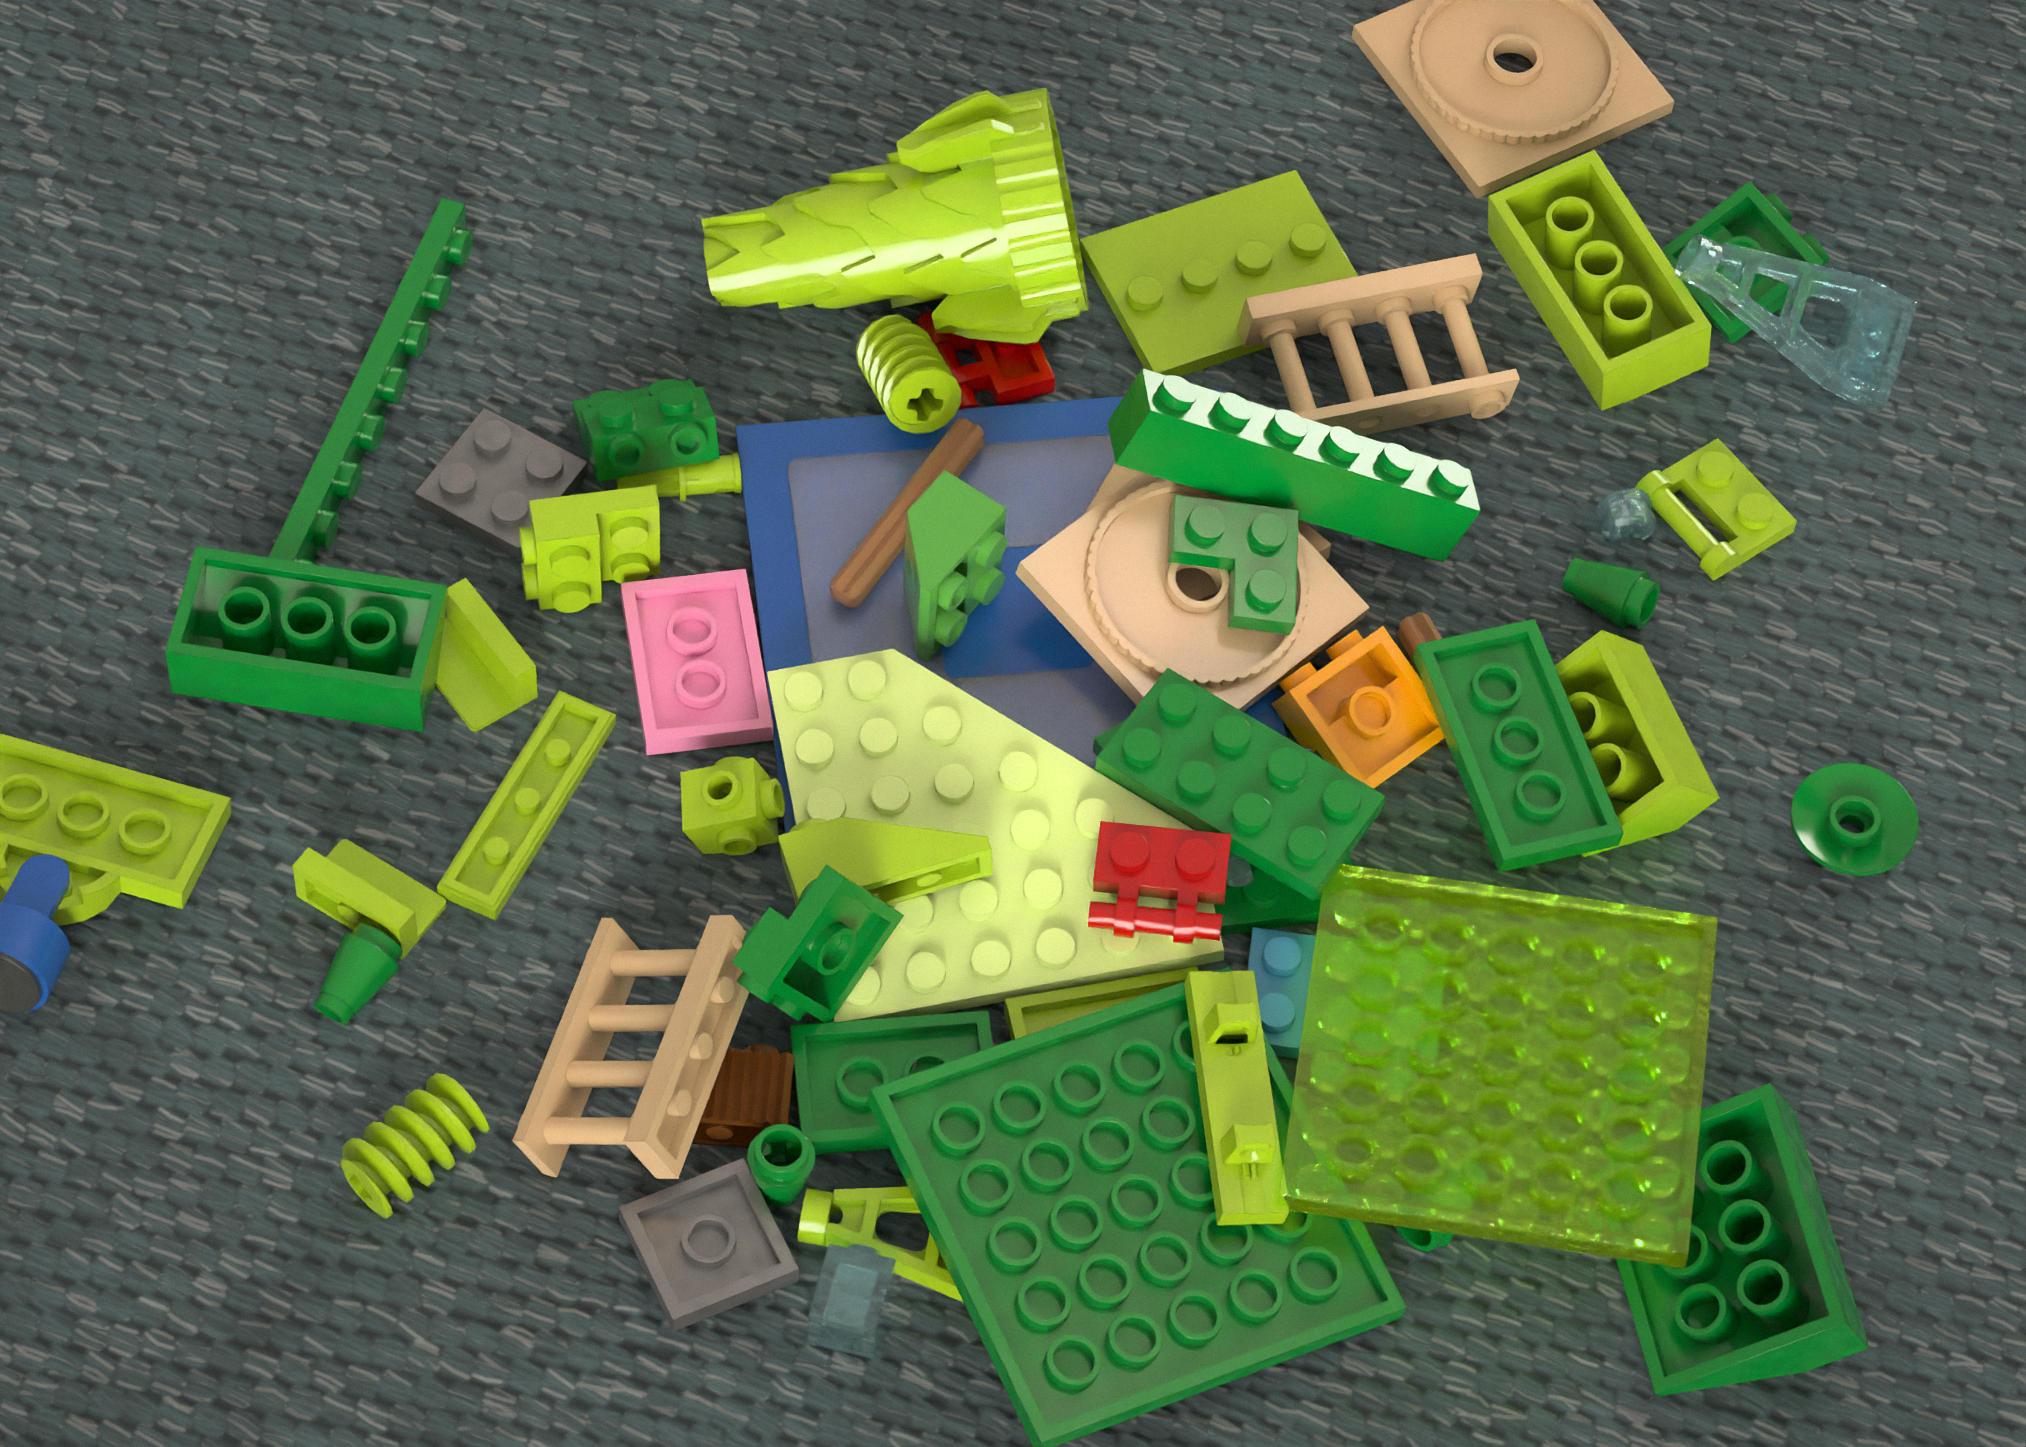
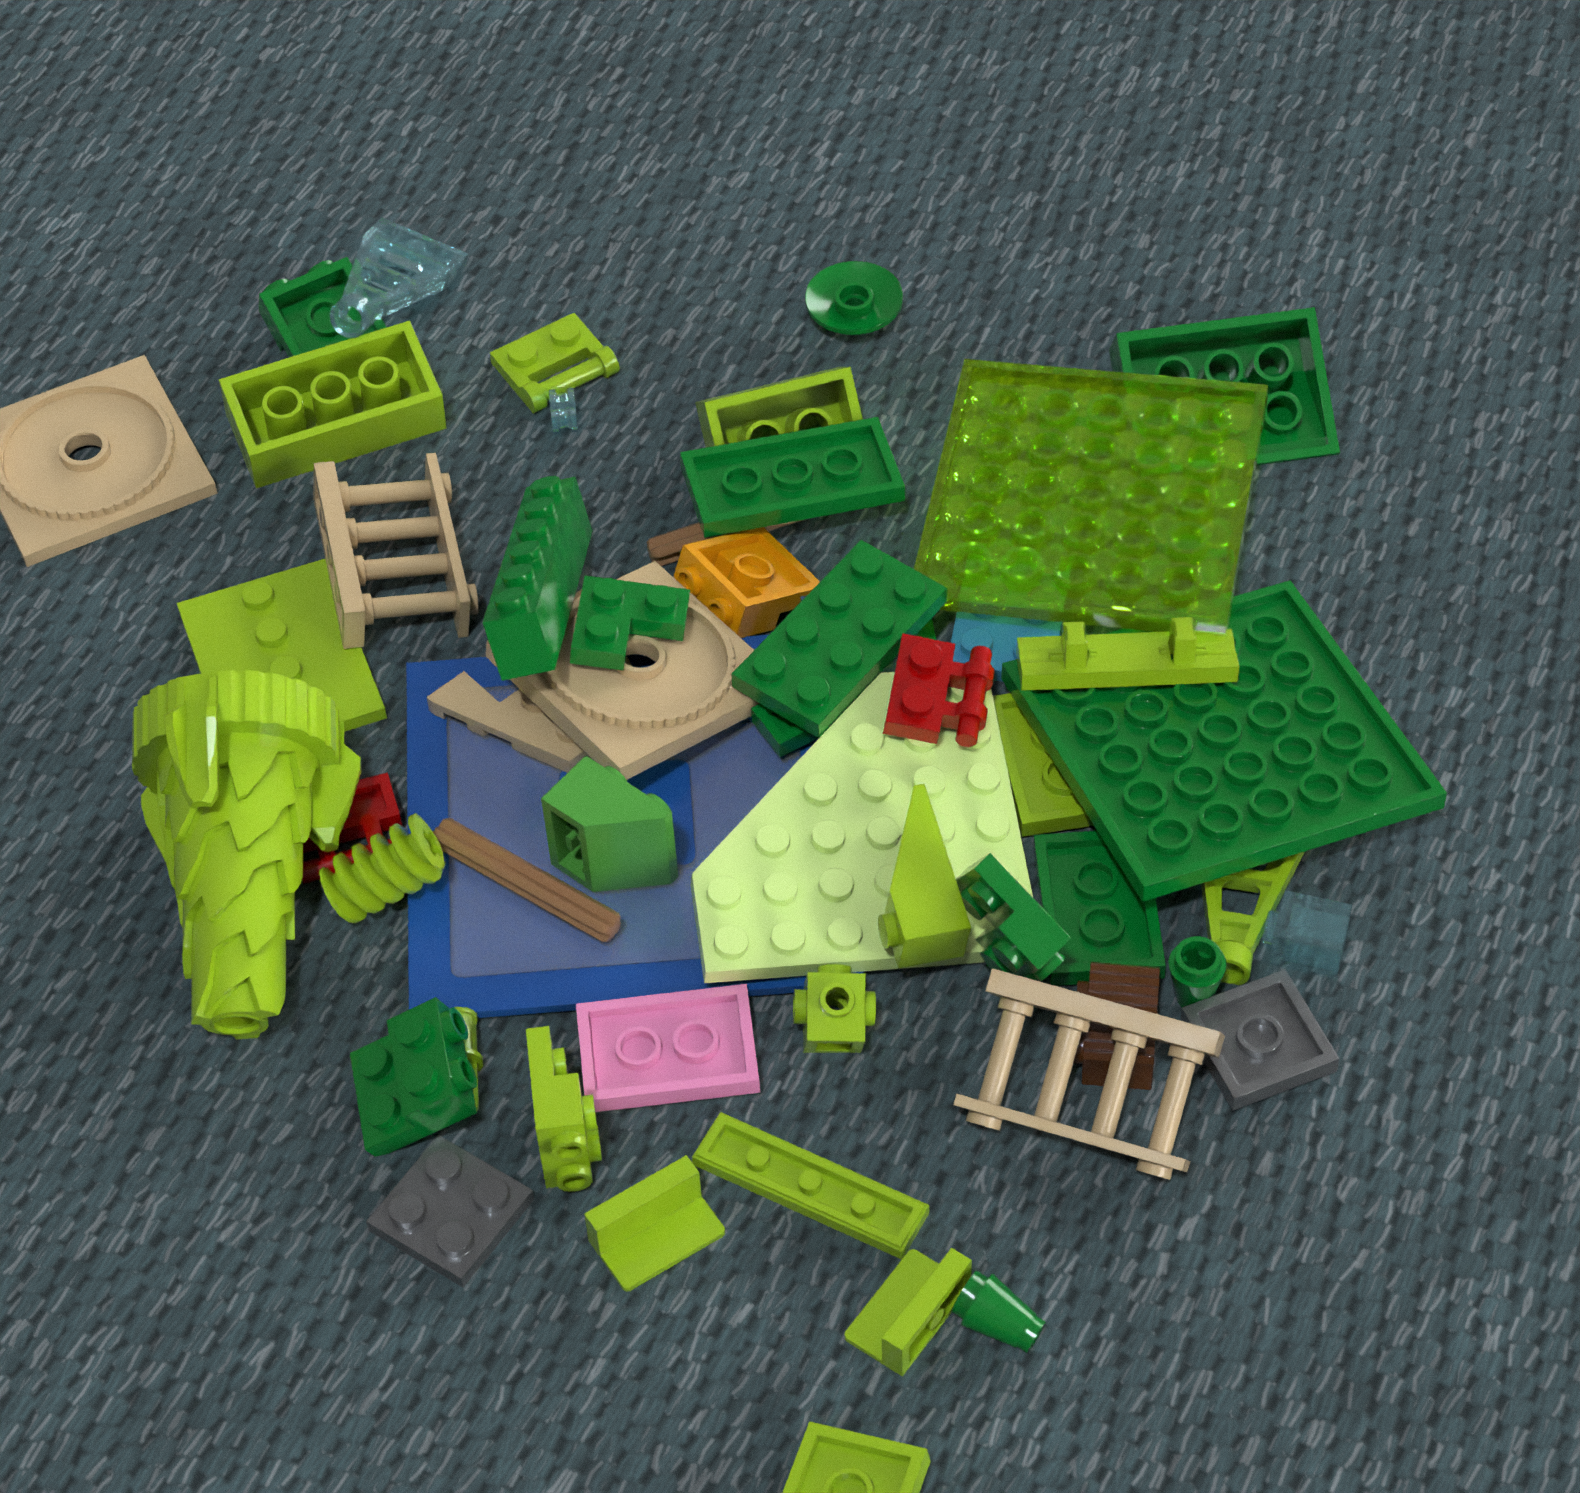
camera: 80 degrees left, 5 degrees down
(307, 639) = (640, 1350): green slope -> none
(378, 382) = (373, 1324): green plate -> none
(410, 1141) = (1179, 1260): lime piece -> none
(1614, 591) = (634, 423): green cone -> none

